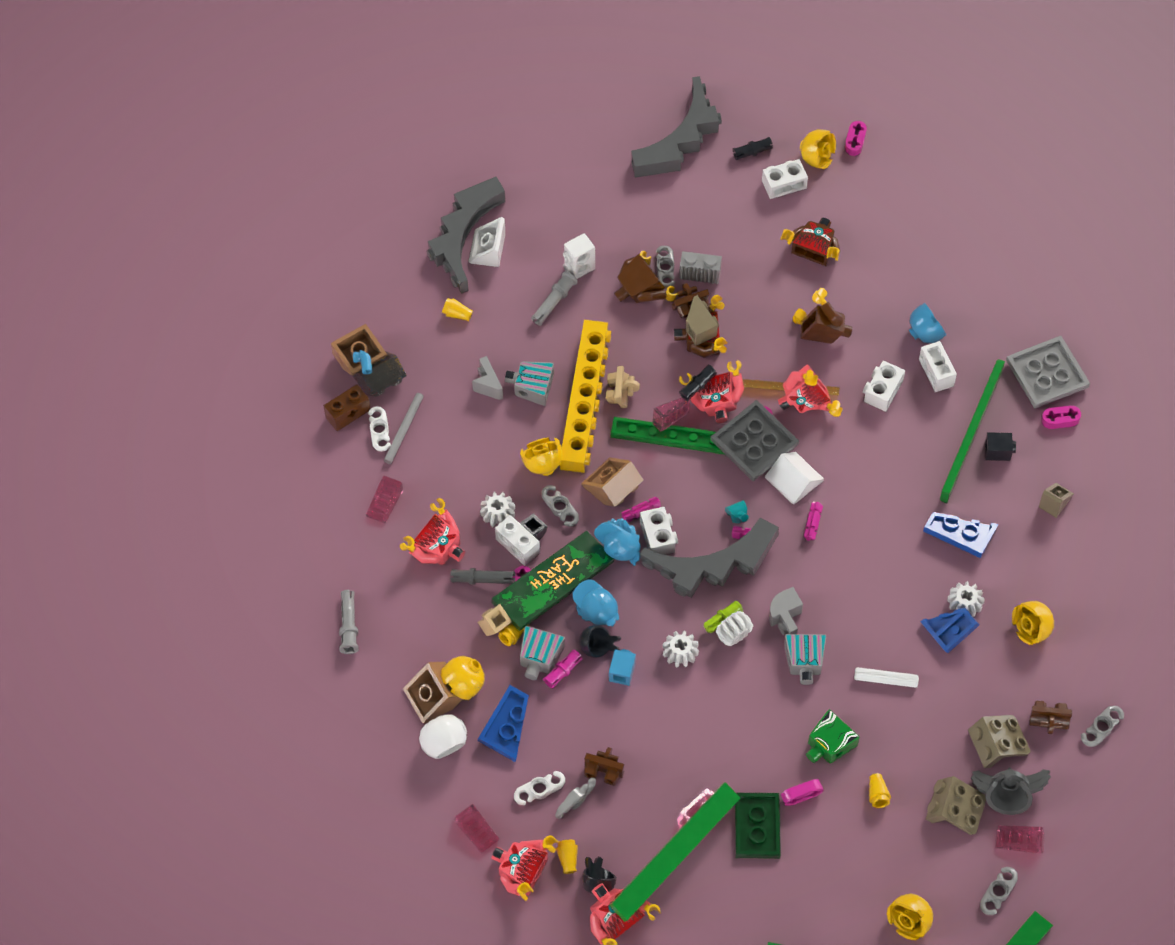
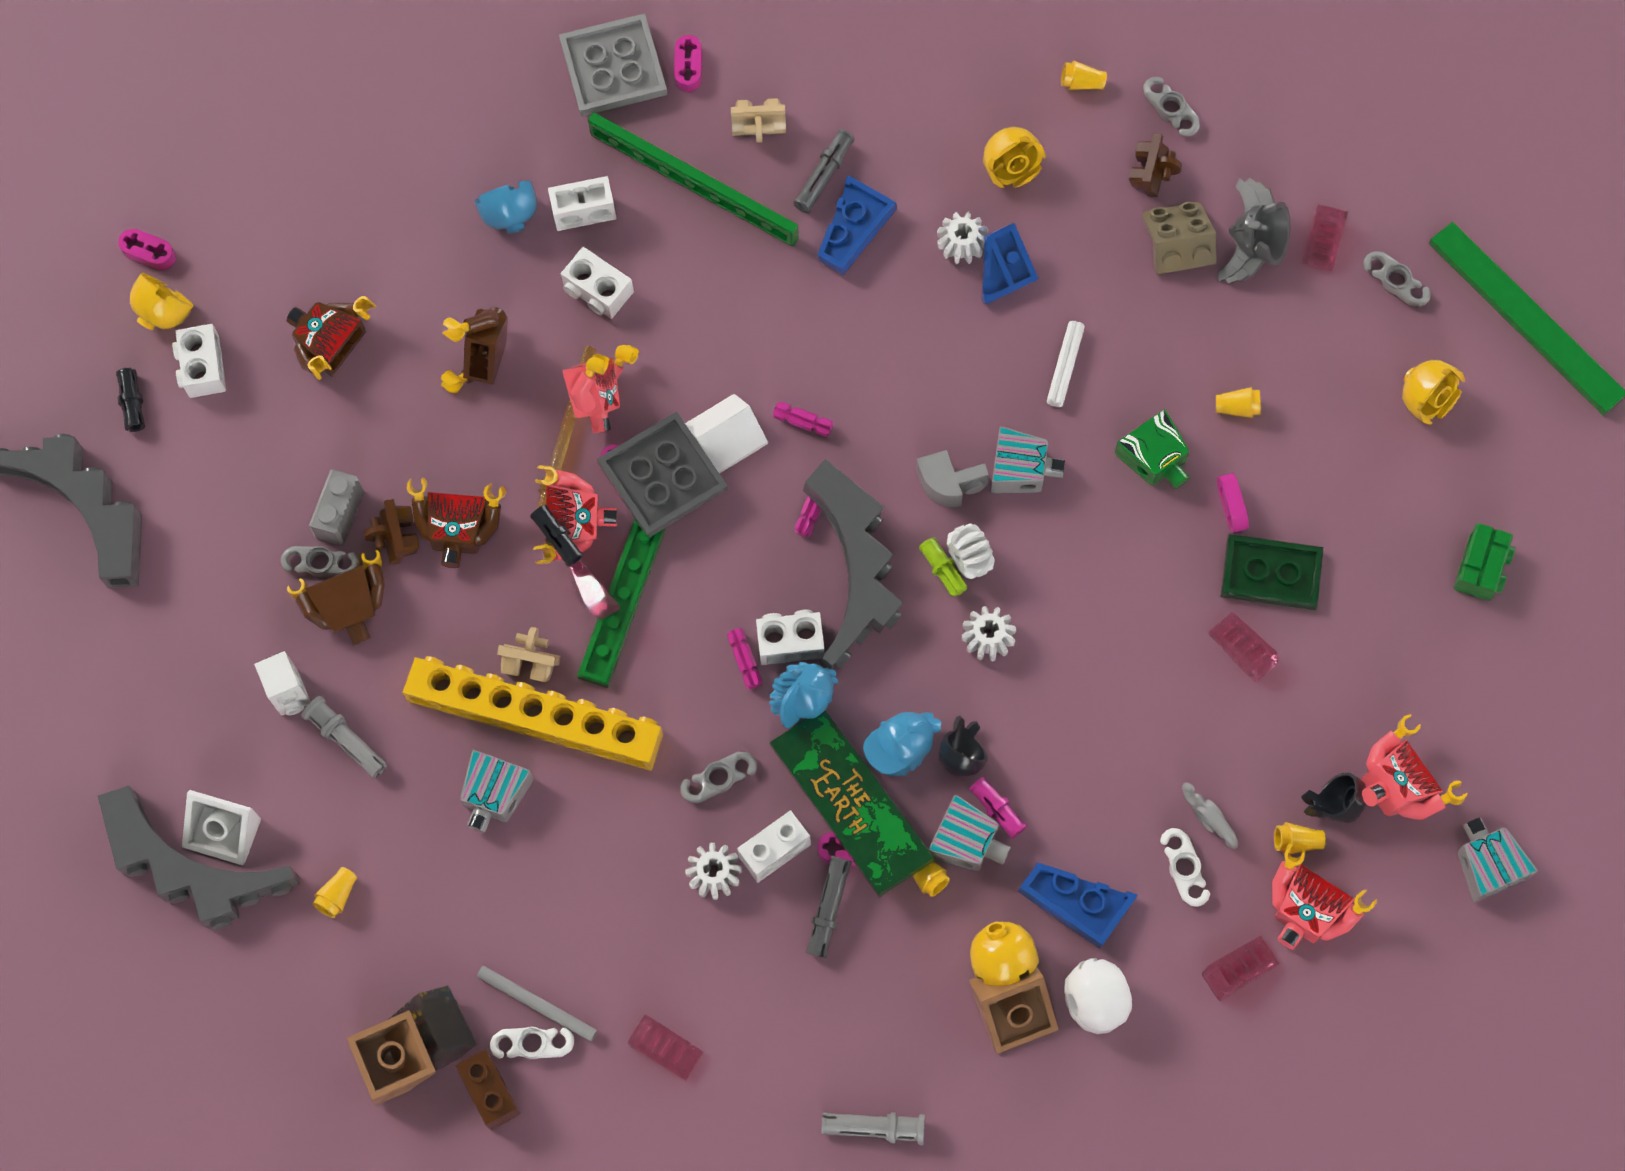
camera: 80 degrees left, 10 degrees up
(365, 360) = (420, 1043): dark azure arm -> none
(437, 539) = (753, 969): torso -> none
(488, 382) = (484, 853): light grey slope -> none
(494, 620) = (905, 904): tan brick -> none
(534, 526) = (752, 819): black brick -> none
(542, 456) = (634, 788): yellow cylinder -> none
(605, 763) = (1173, 756): reddish brown hips -> none
(613, 481) = (691, 692): medium nougat slope -> none
(622, 667) = (1006, 720): dark azure brick -> none
(674, 852) = (1320, 683): green tile -> none
(700, 323) = (447, 517): dark tan slope -> none
(737, 512) = (773, 518): teal piece -> none
(956, 804) = (1270, 309): dark tan bracket -> none
(998, 509) = (807, 196): none -> dark grey pin
(999, 446) = (725, 149): black brick -> none
(1024, 462) = (758, 119): none -> tan hips
(1055, 499) = (820, 94): dark tan slope -> none
(1110, 663) = (1080, 77): none -> yellow cone

